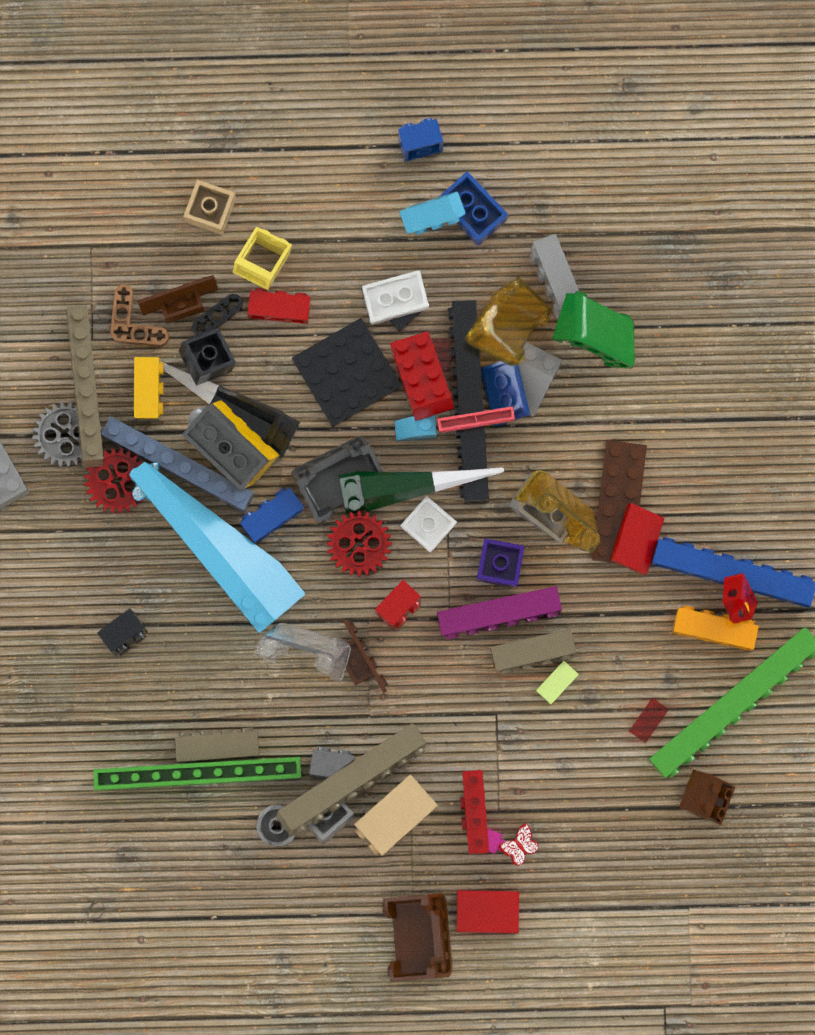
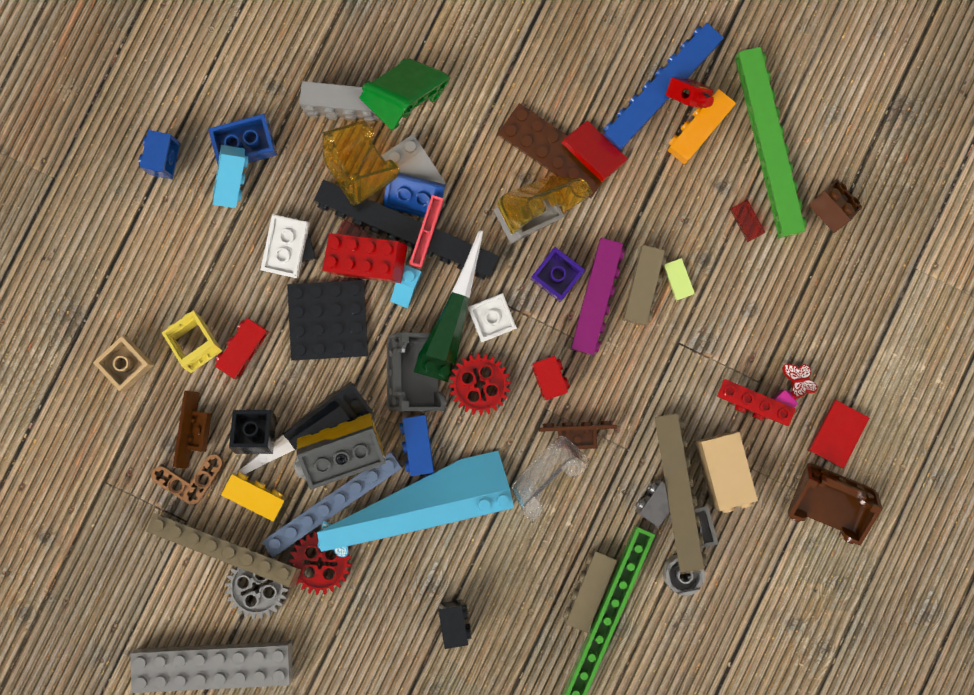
camera: 70 degrees left, 5 degrees up
(226, 301) = (225, 389): black beam -> none

